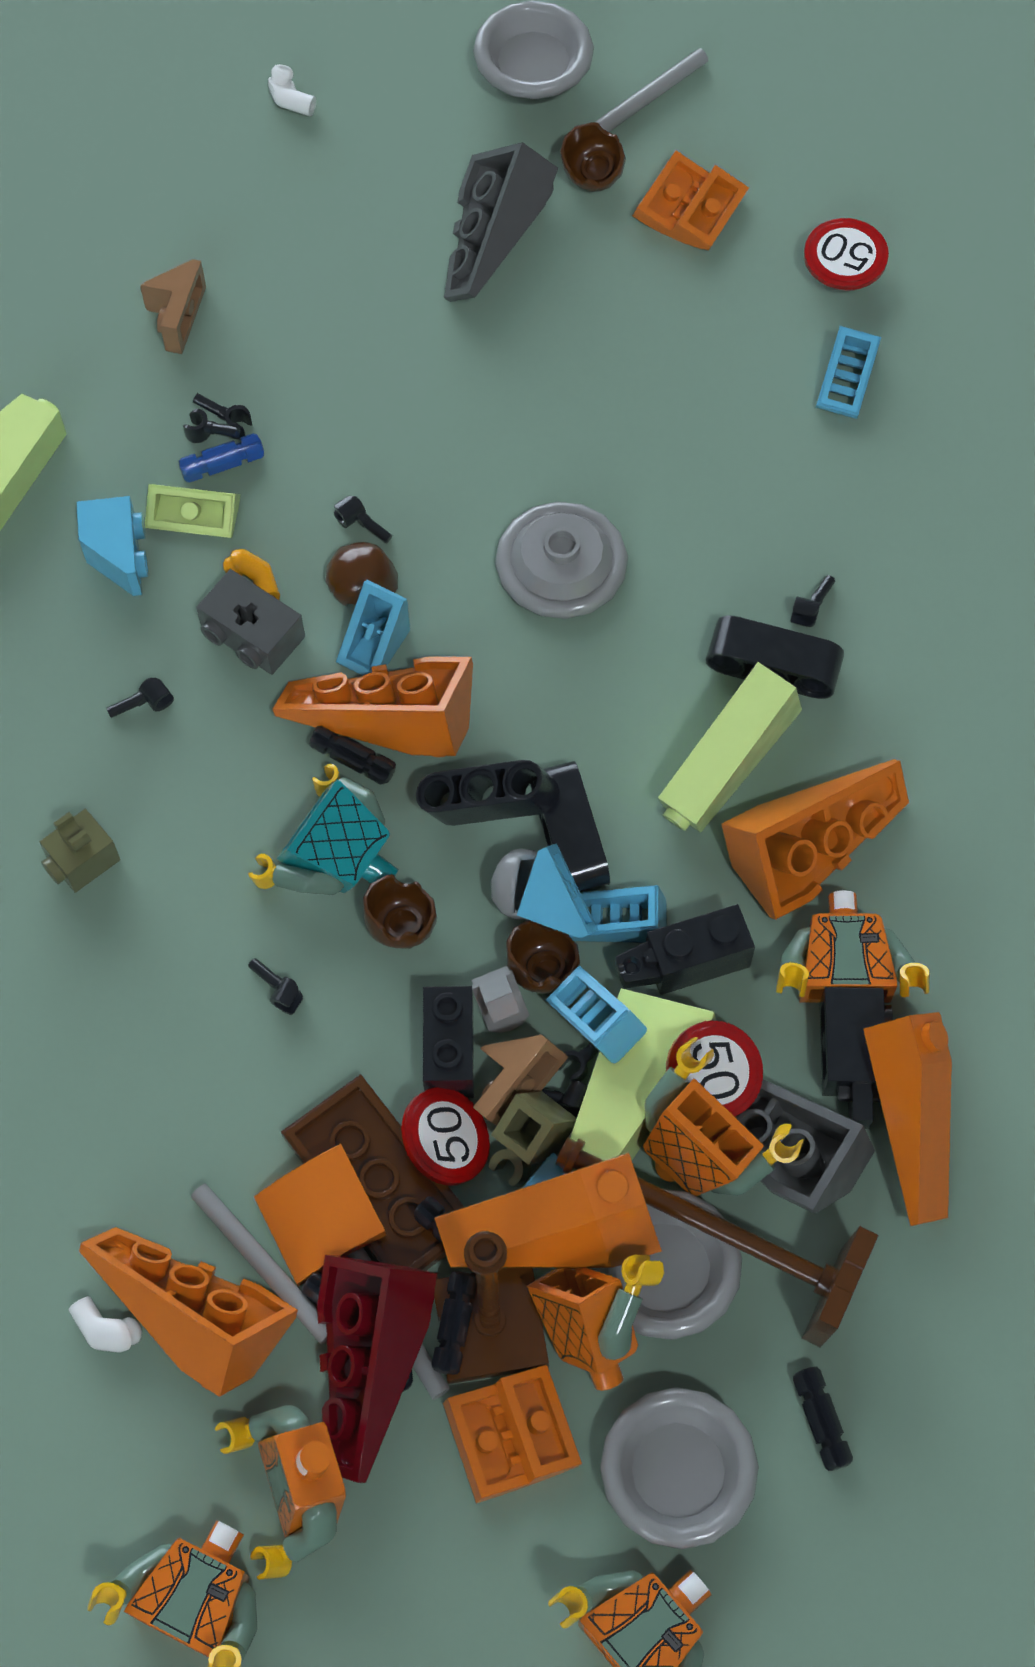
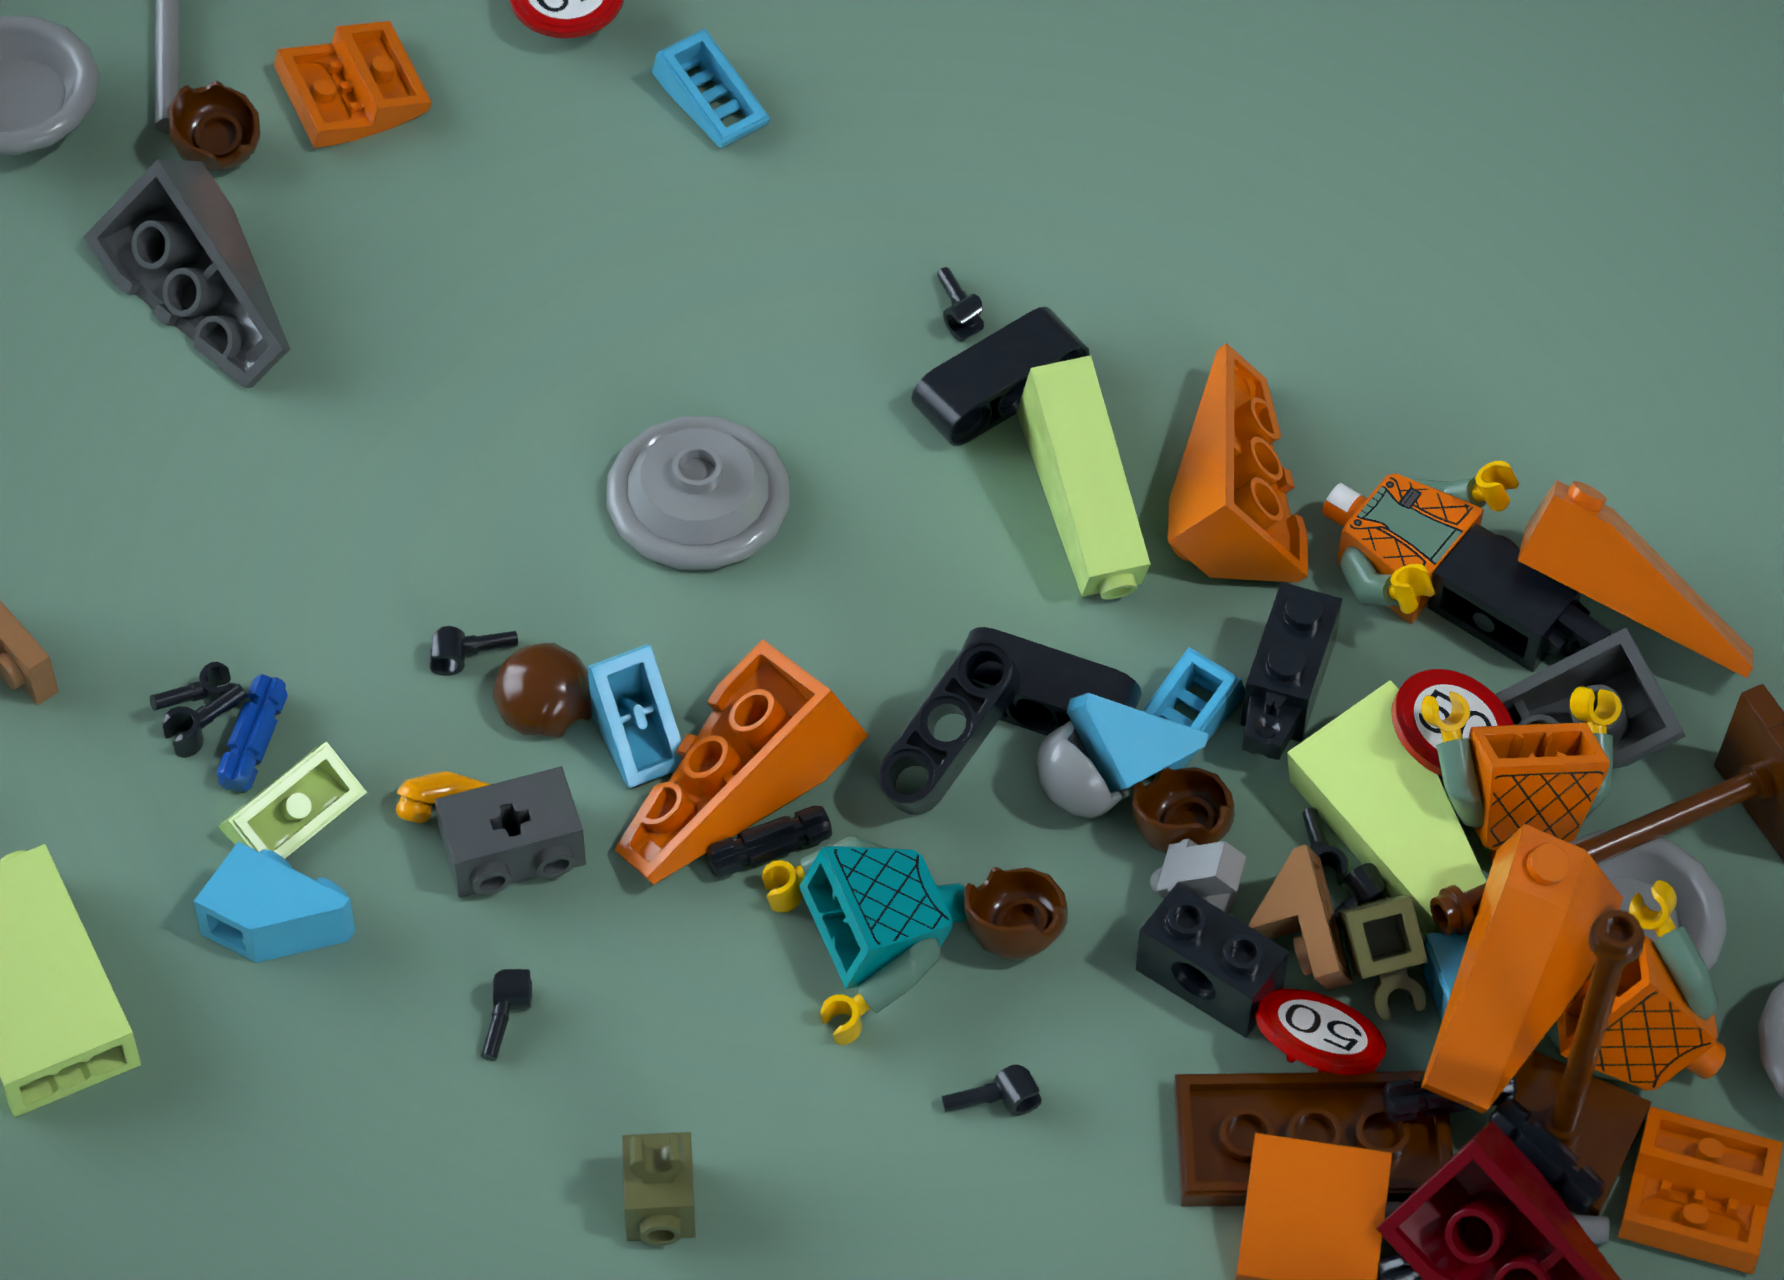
camera: 55 degrees left, 10 degrees down
(616, 1024) = (1351, 799): medium azure slope -> none

